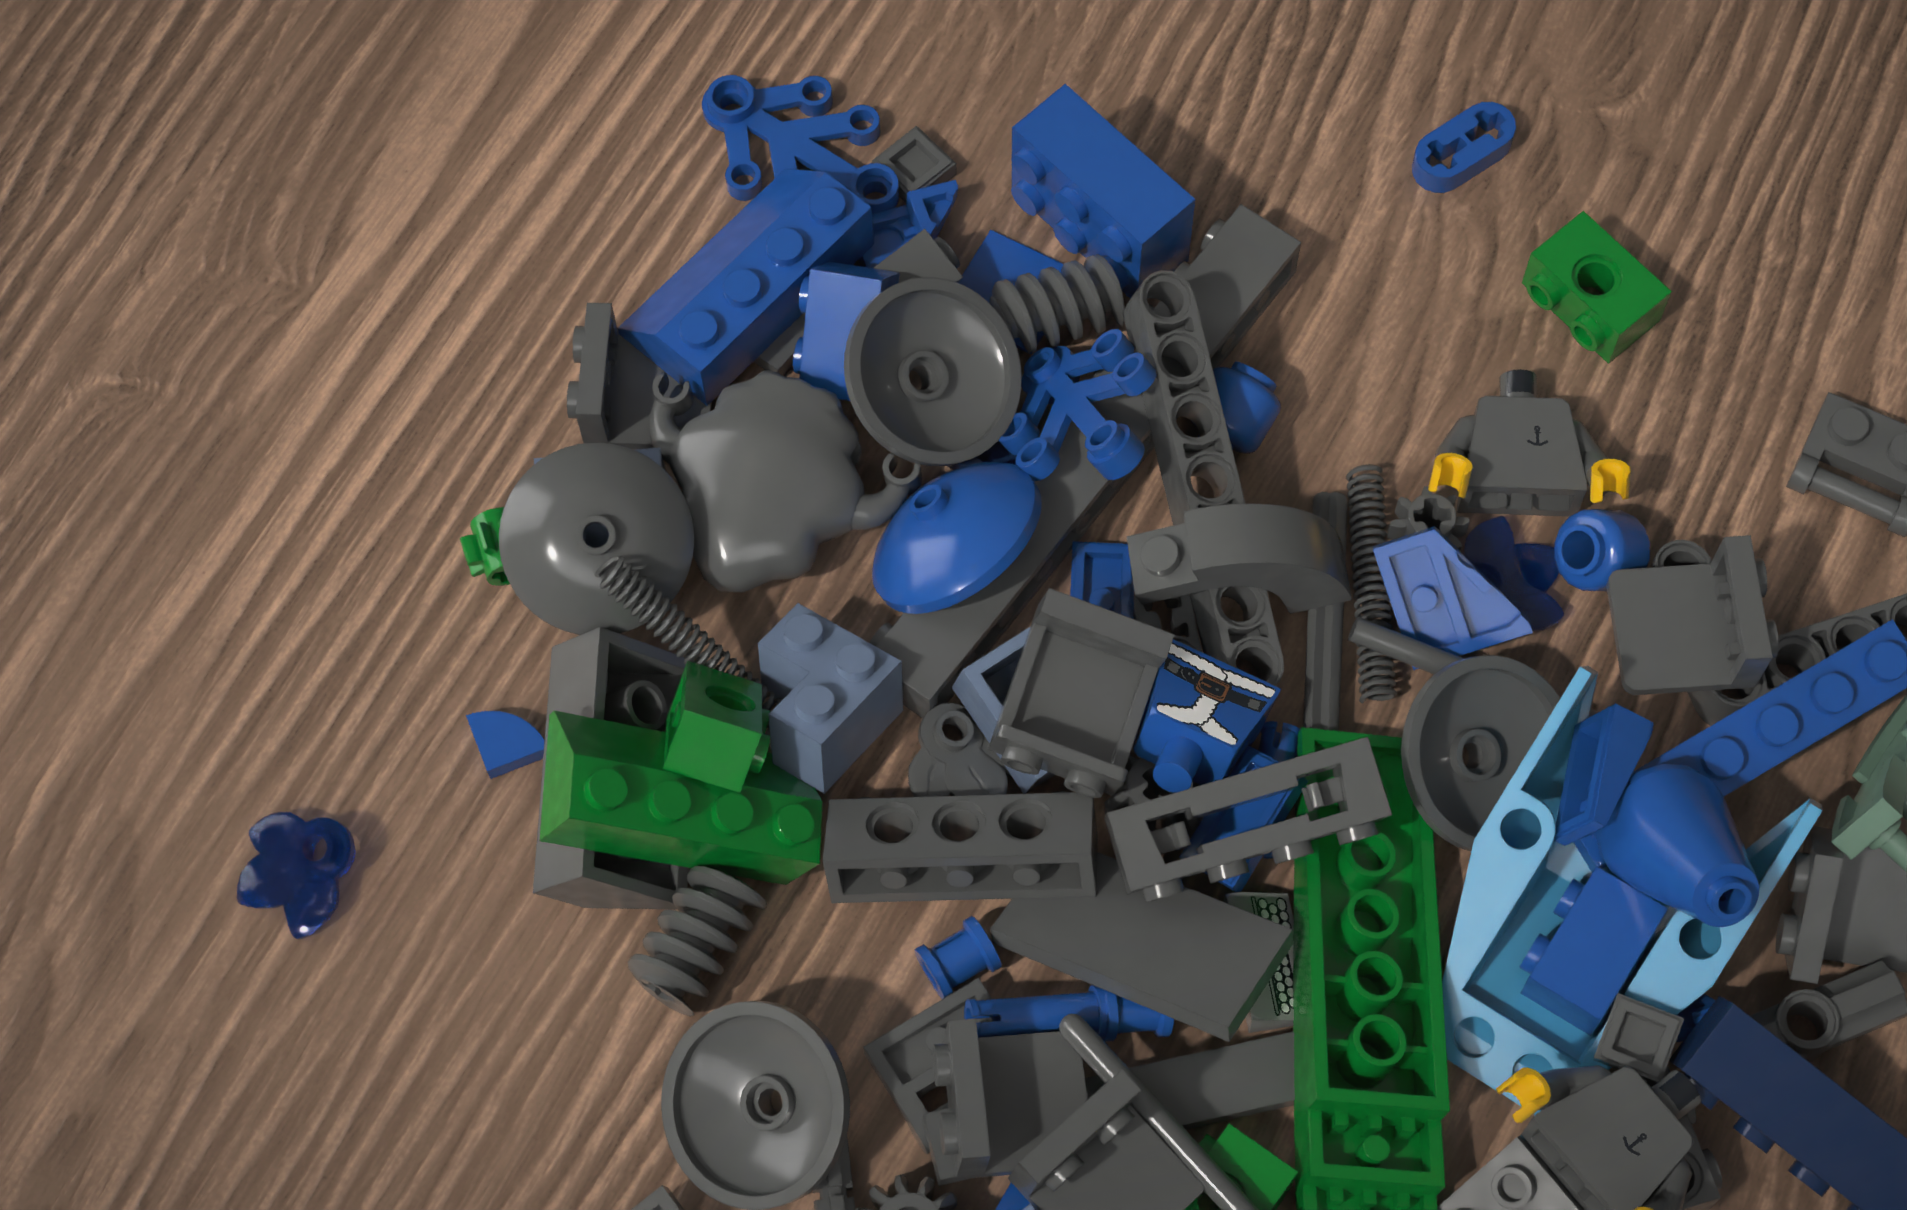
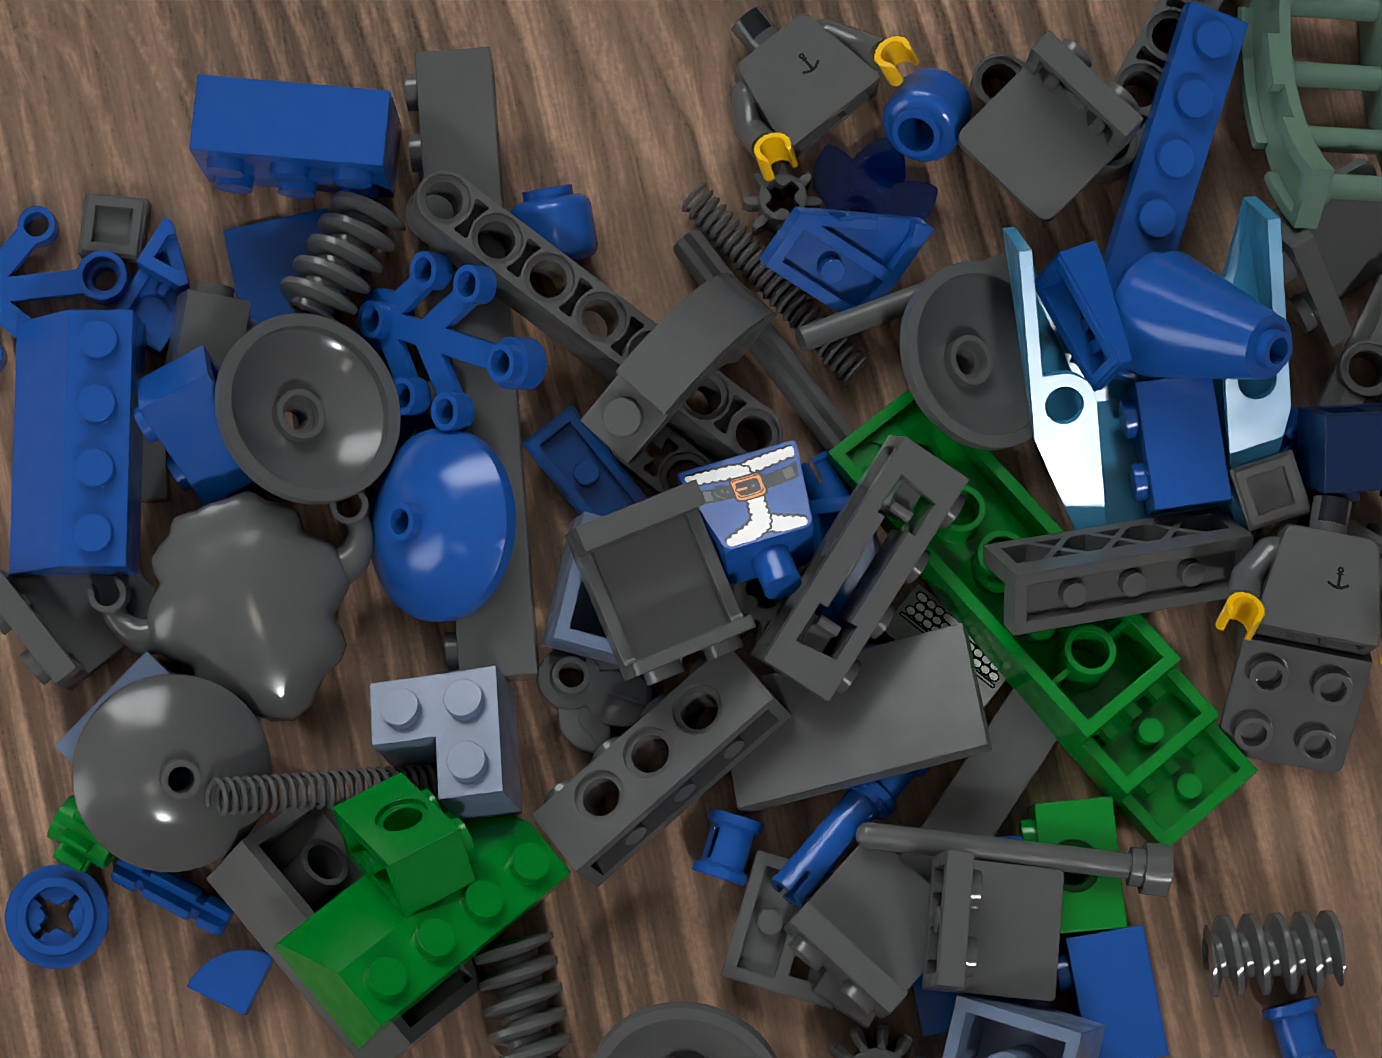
camera: 45 degrees left, 15 degrees up
(404, 575) = (27, 916): none -> blue gear
(519, 644) = (175, 896): none -> blue axle
(1451, 993) = (1117, 569): none -> dark grey fence

